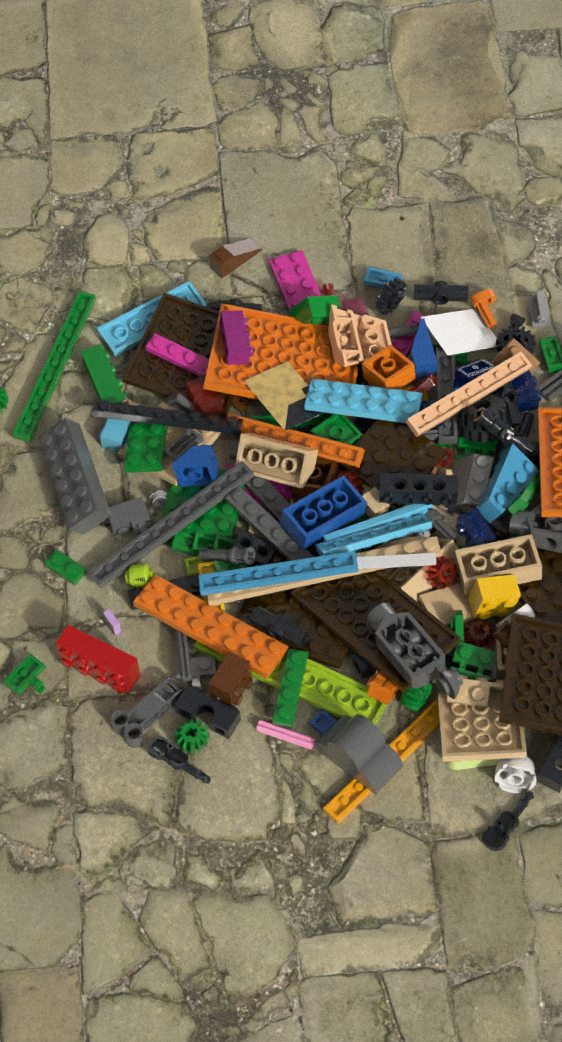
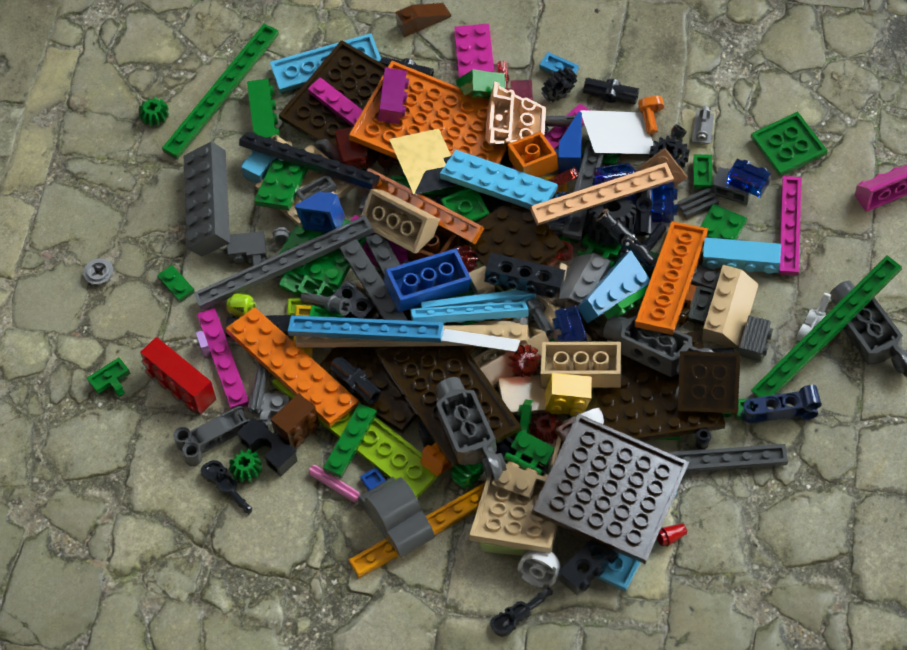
camera: 15 degrees right, 0 degrees up
(137, 634) = (223, 358): none -> dark pink plate

